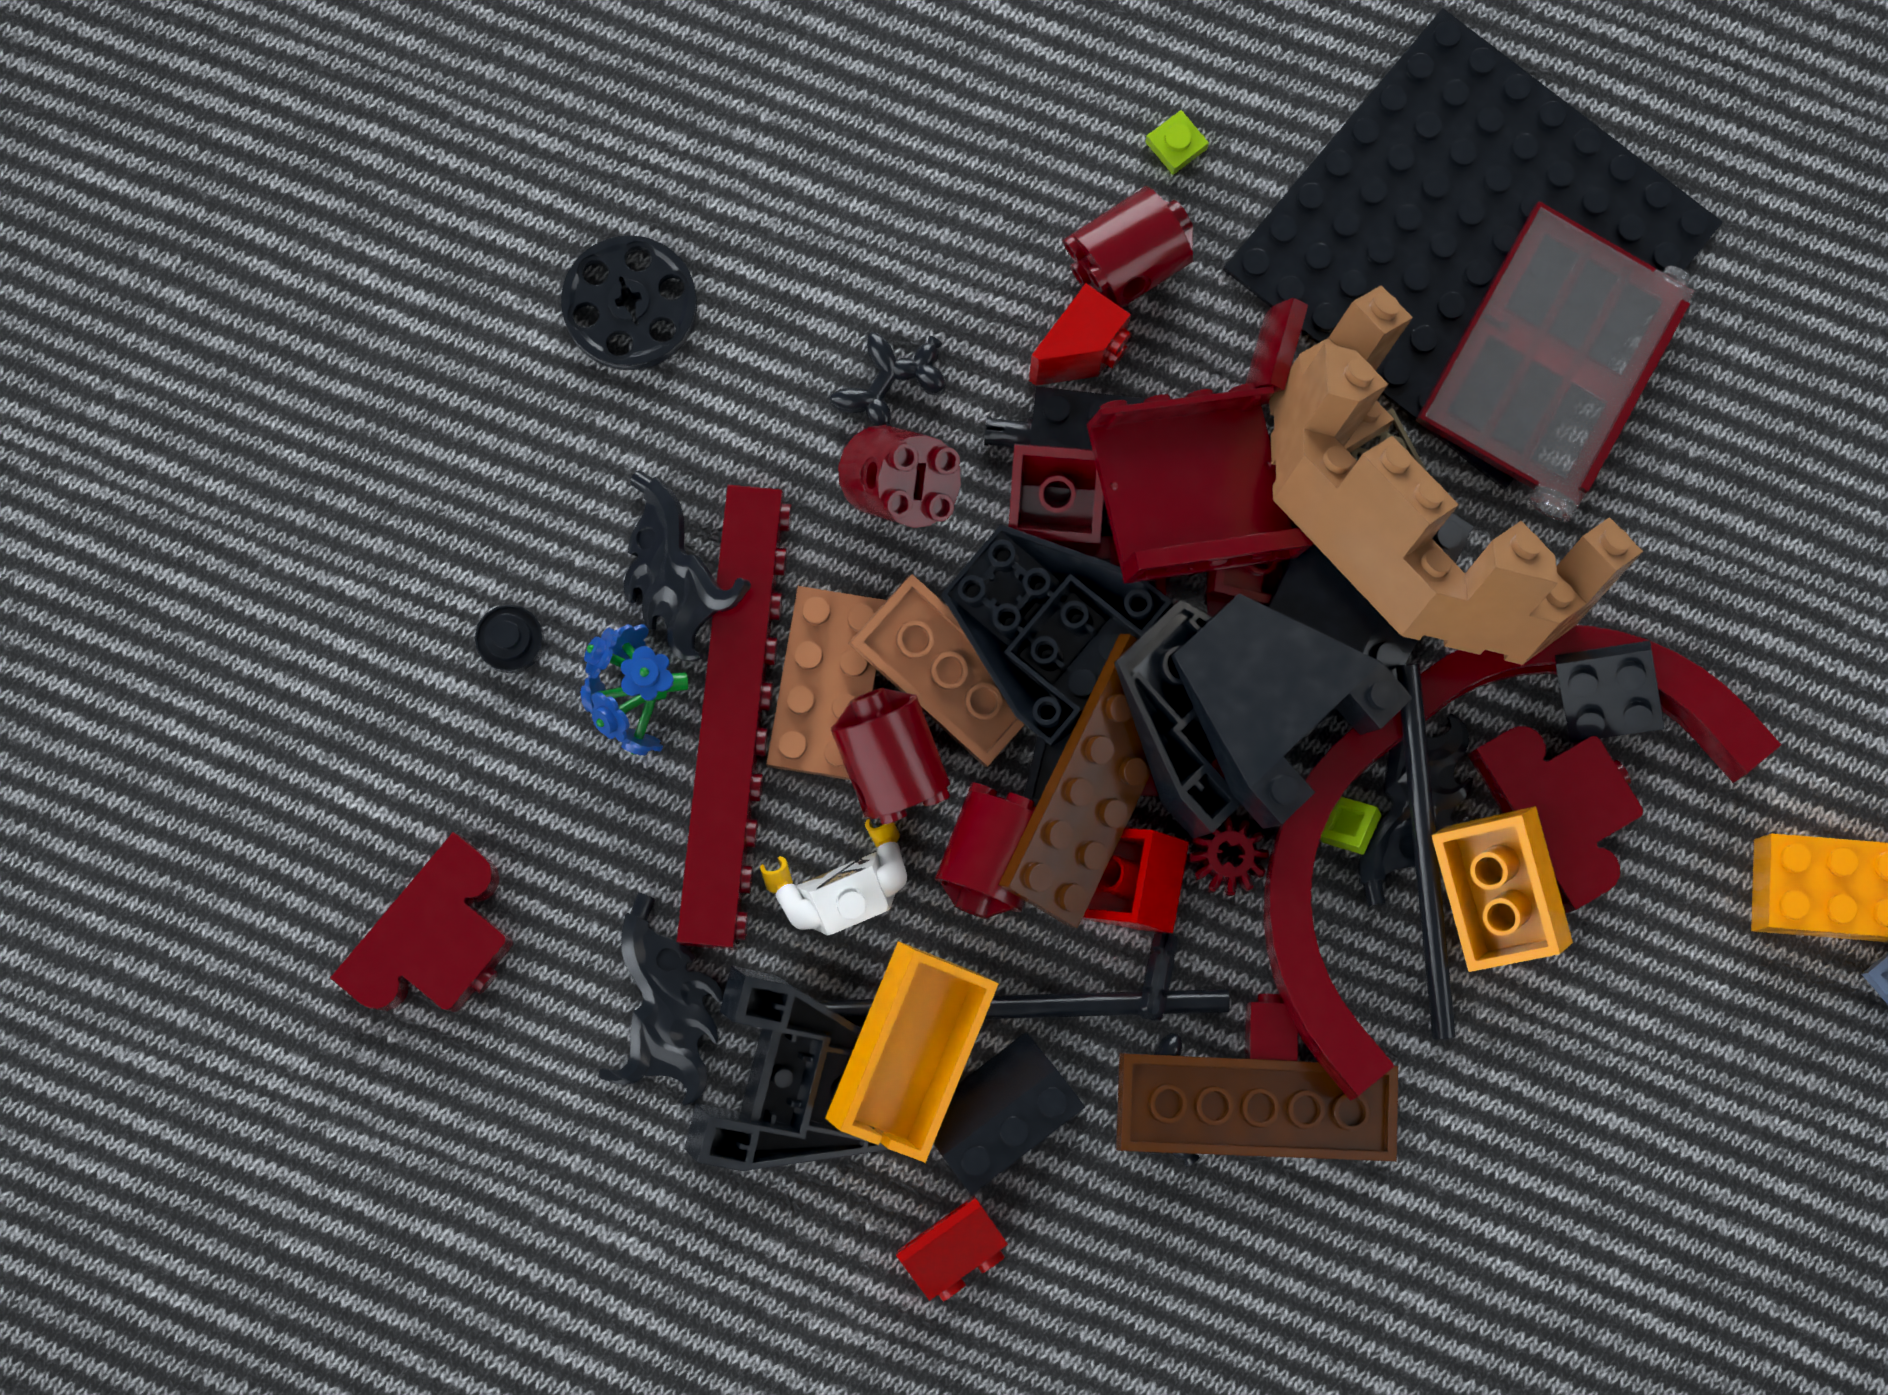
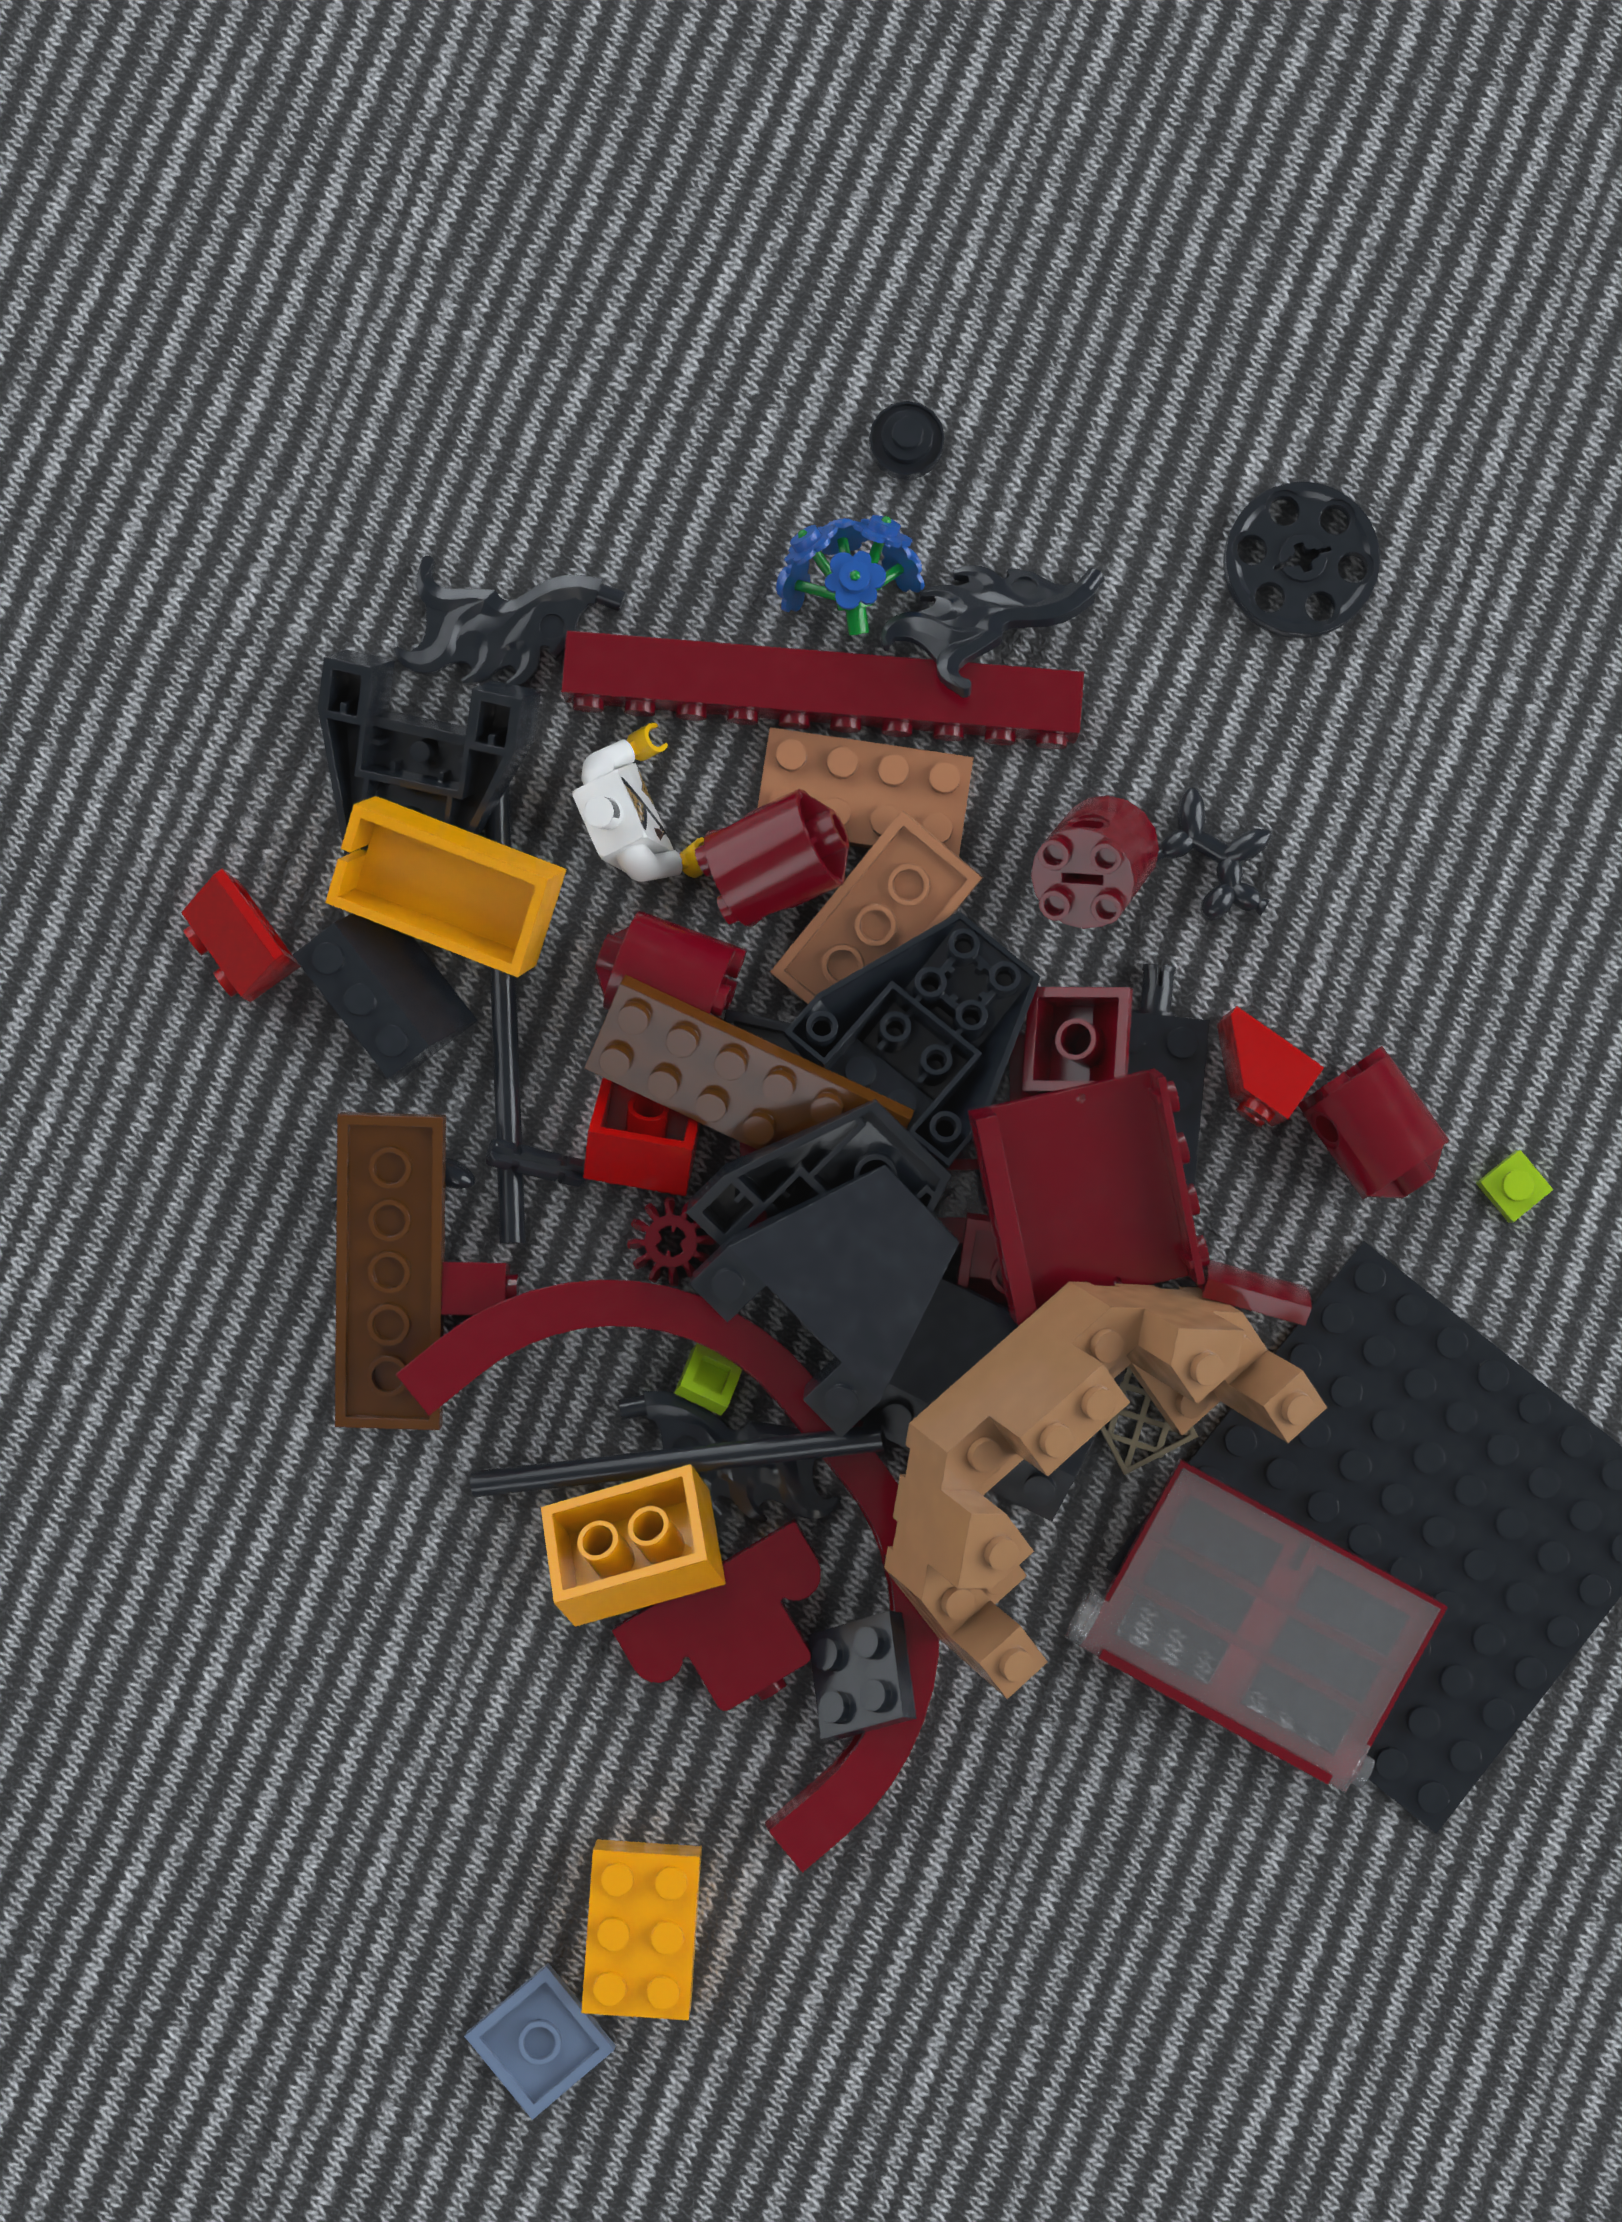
camera: 90 degrees right, 5 degrees up
(431, 936) = (574, 370): dark red brick -> none

